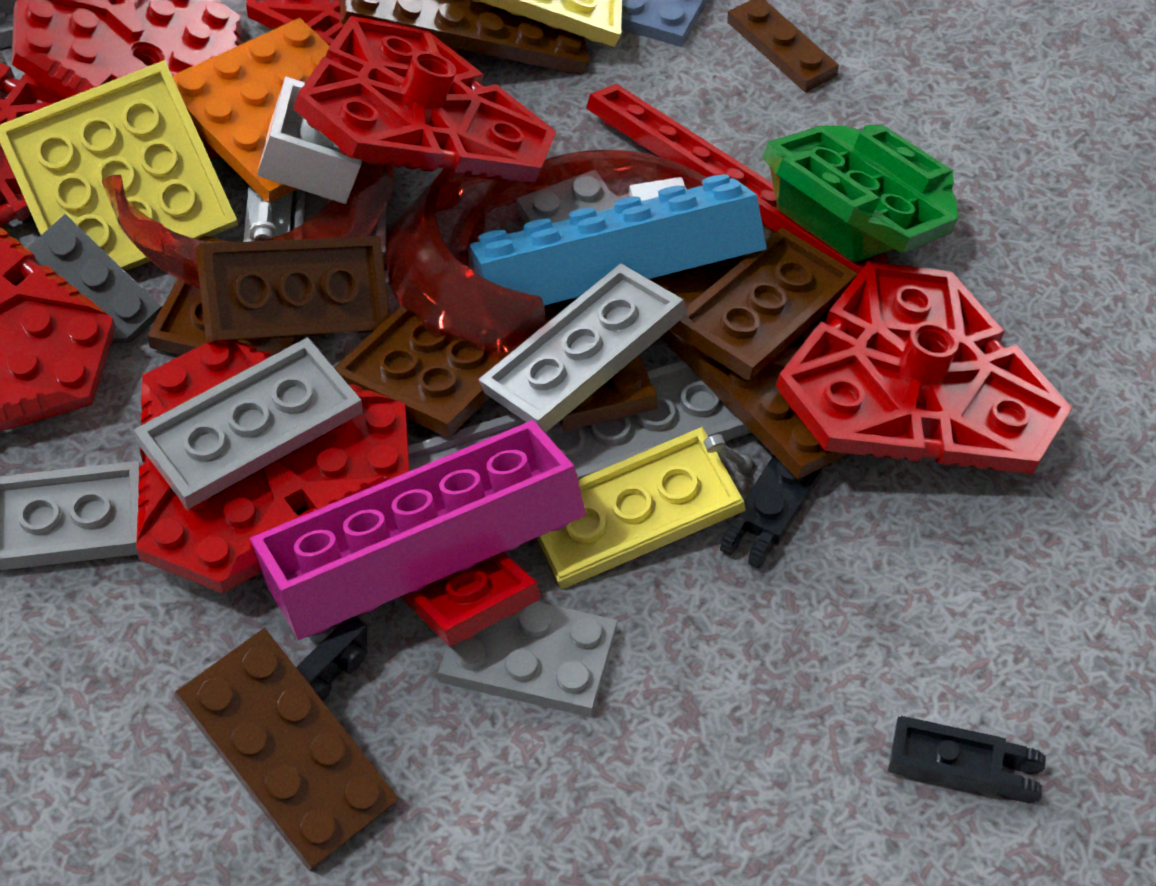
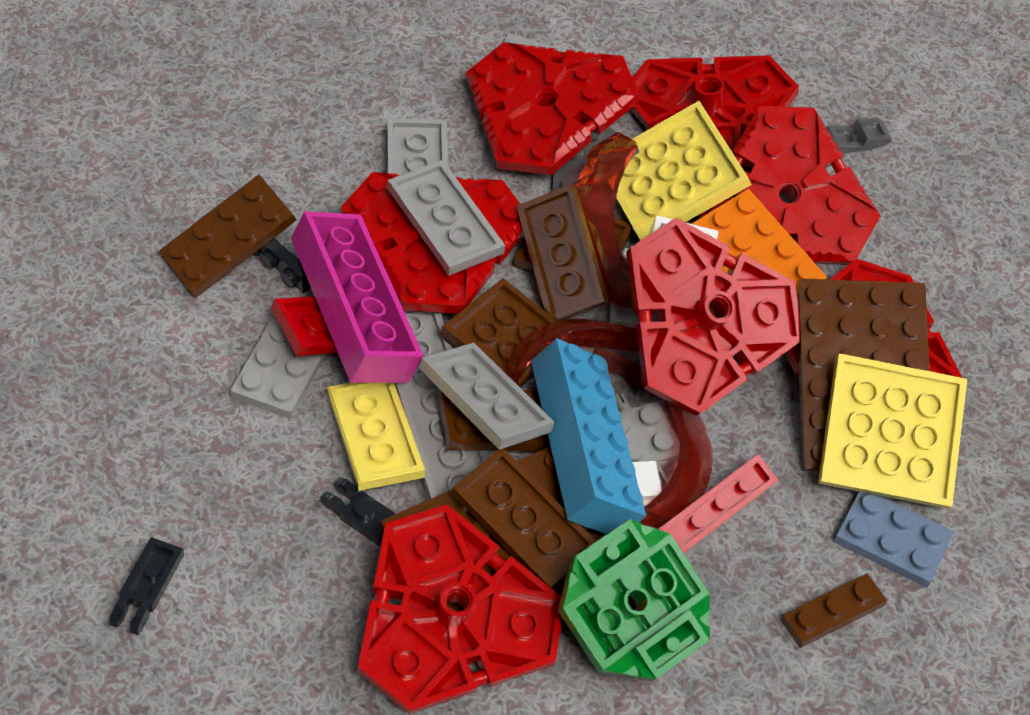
camera: 90 degrees right, 0 degrees up
(716, 443) = (399, 475): light grey hinge -> none

